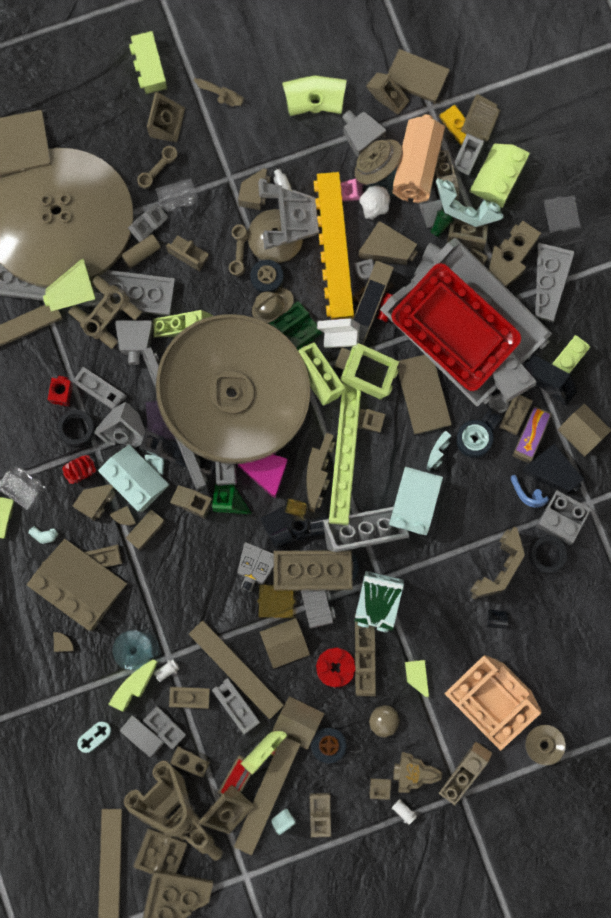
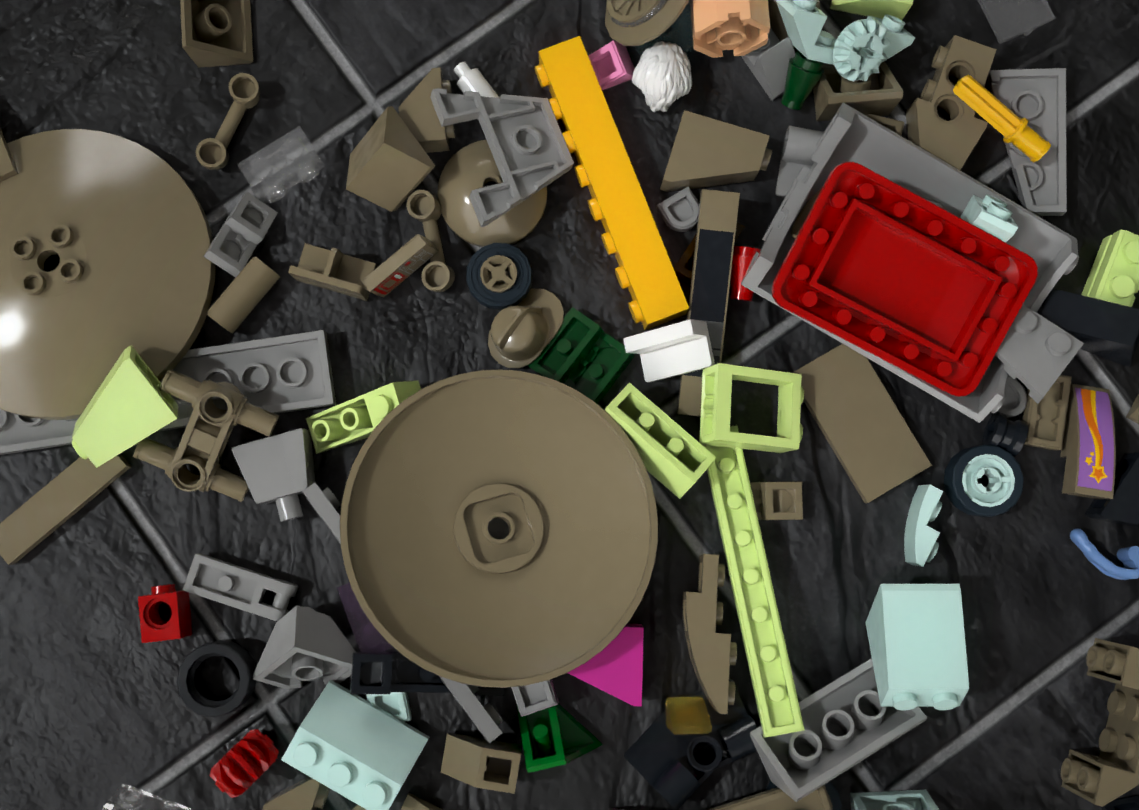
camera: 20 degrees left, 5 degrees up
(220, 258) = (400, 265): none -> dark tan tile
(228, 207) = (387, 163): none -> dark tan slope
(471, 207) = (860, 34): none -> light aqua gear
(508, 309) = (990, 216): none -> light aqua slope
(533, 267) = (1001, 118): none -> yellow axle

